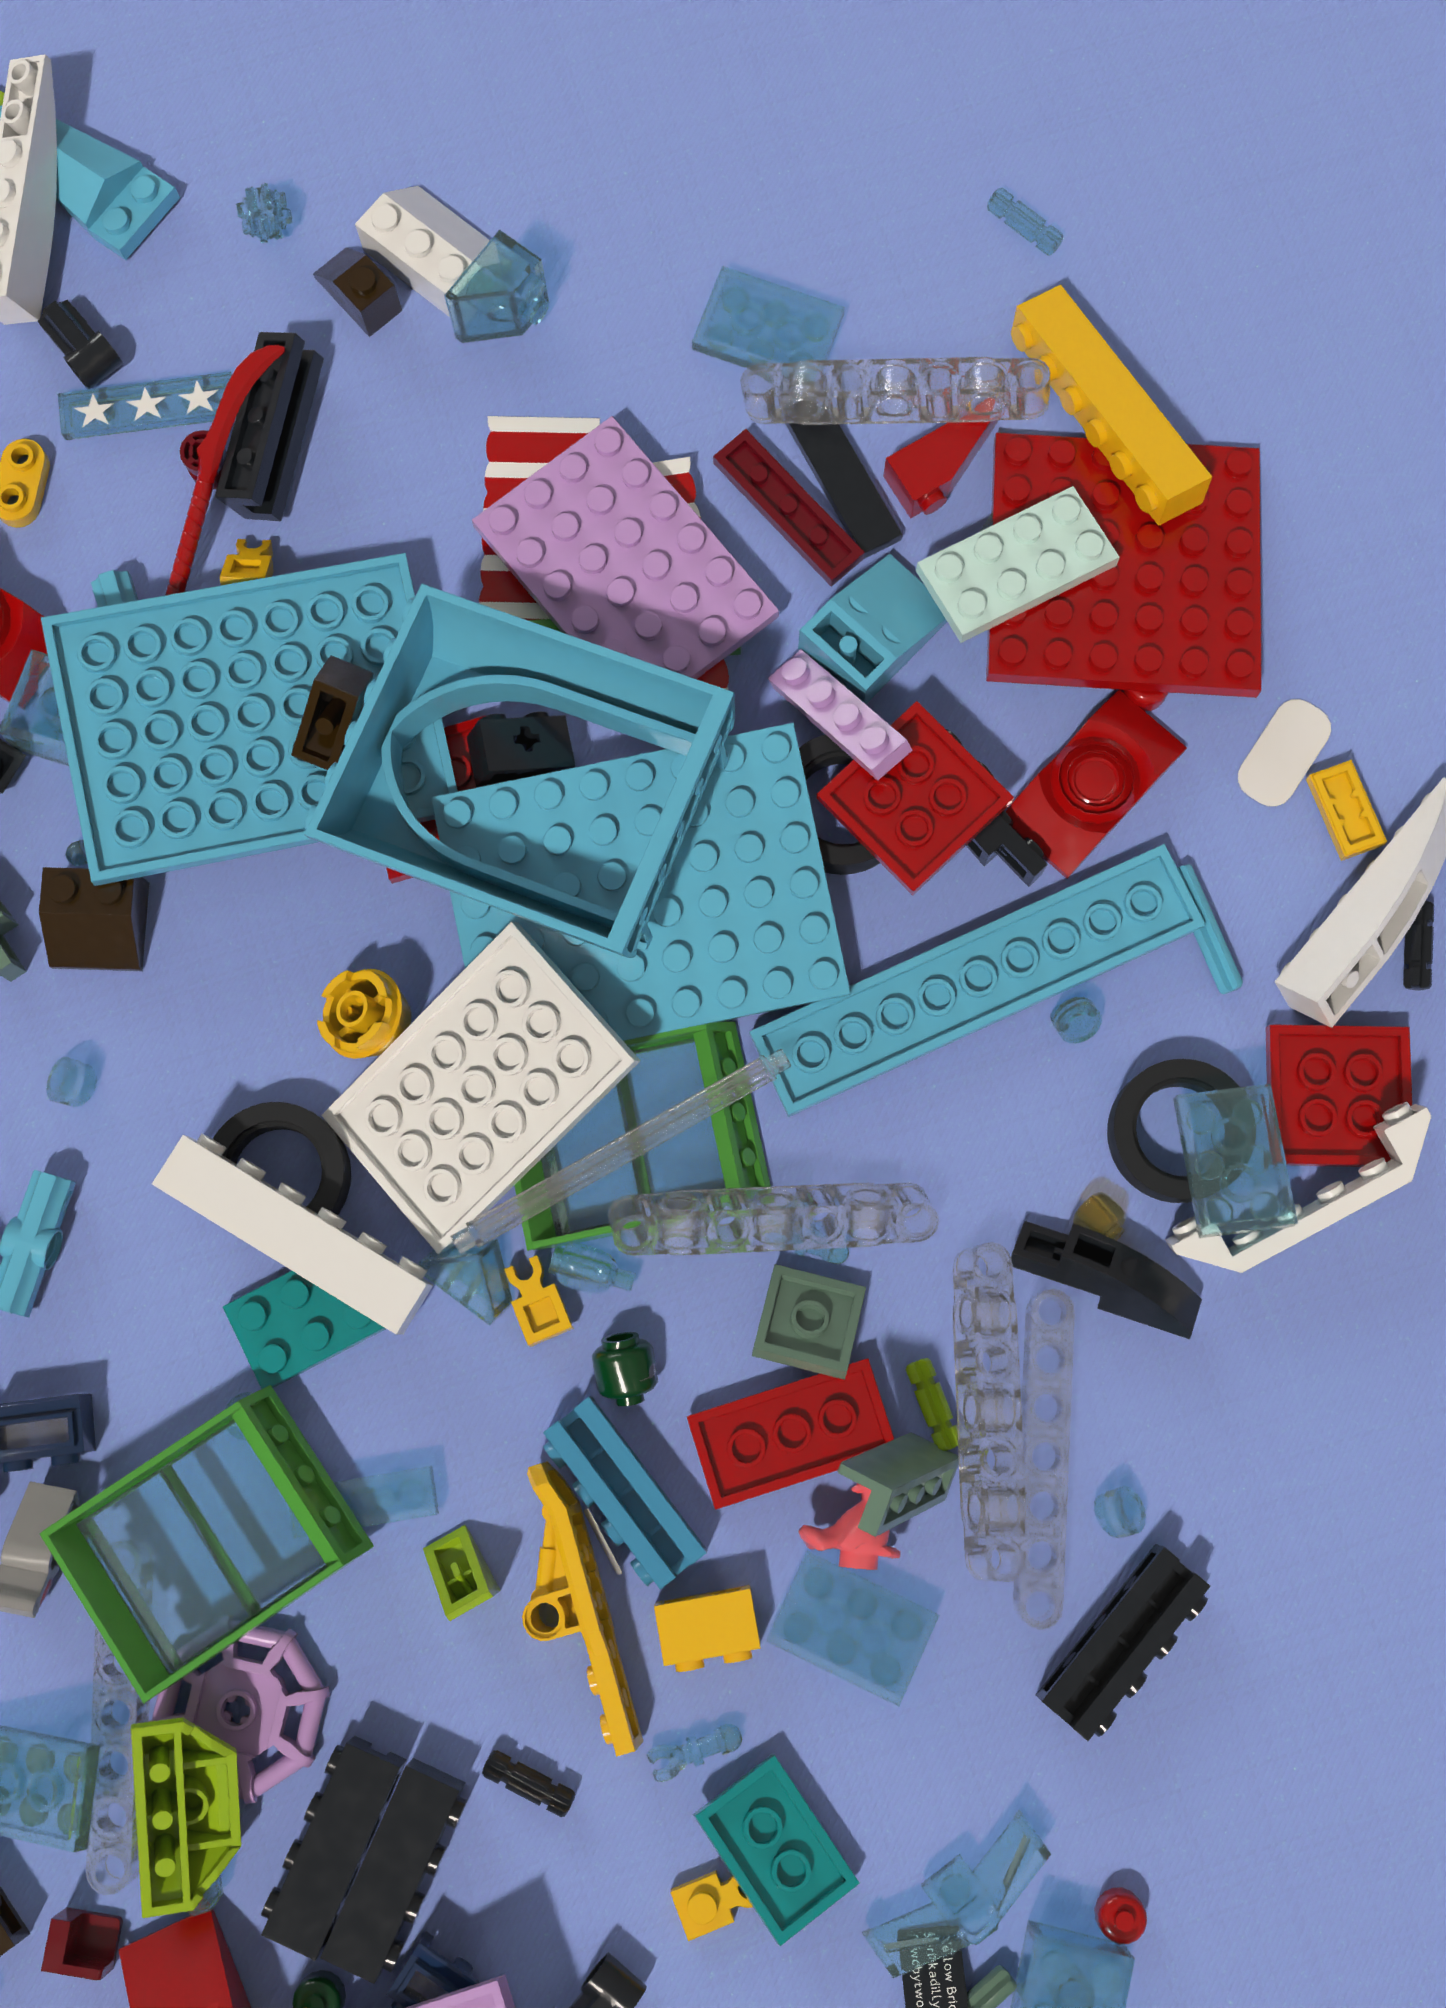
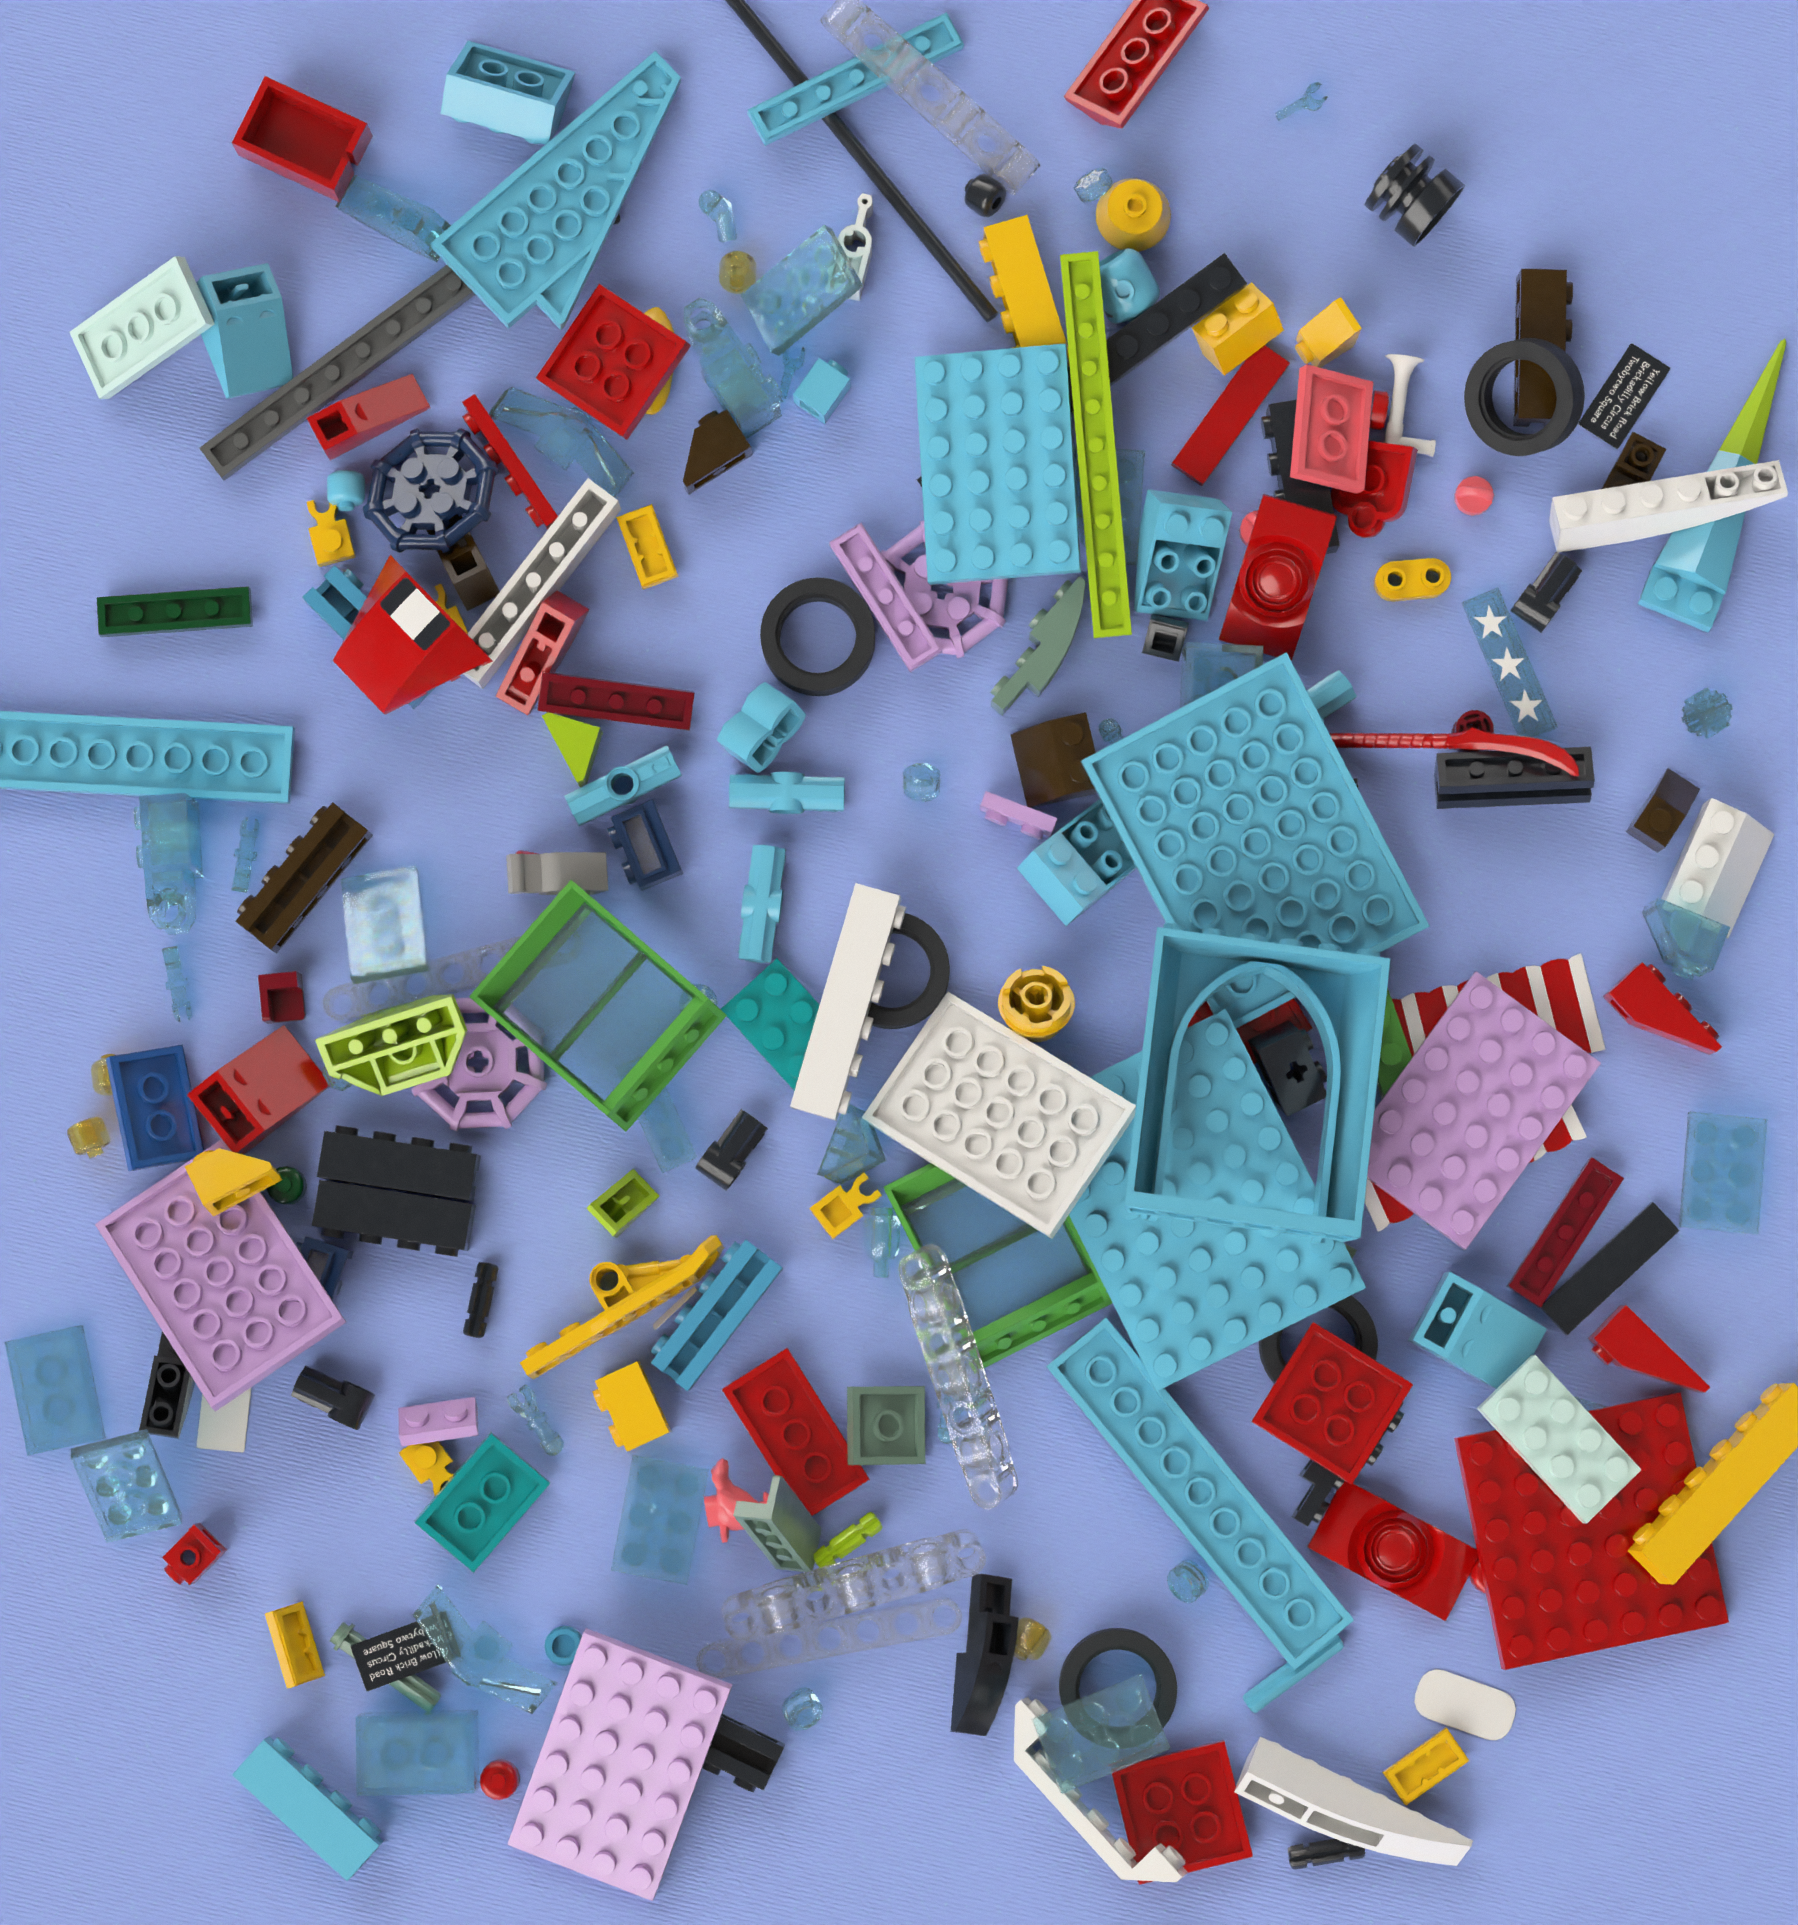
camera: 75 degrees right, 5 degrees up
(131, 994) = (1032, 821): none -> lavender plate
(152, 1307) = (762, 904): none -> medium azure piece
(218, 924) = (1078, 863): none -> medium azure slope
(248, 563) = (1385, 796): yellow plate -> none
(330, 709) = (1271, 910): dark brown slope -> none
(440, 1430) = (727, 1156): none -> black piece
(570, 349) = (1651, 1007): none -> red slope
(620, 1151) = (980, 1241): clear piece -> none
(624, 1368) = (811, 1289): dark green head -> none
(662, 1879) = (438, 1421): none -> lavender plate
(840, 714) = (1388, 1322): lavender plate -> none
(896, 390) = (1685, 1298): clear beam -> none
(975, 1788) = (562, 1645): none -> dark azure tile
(1138, 1759) = (619, 1764): none -> lavender plate

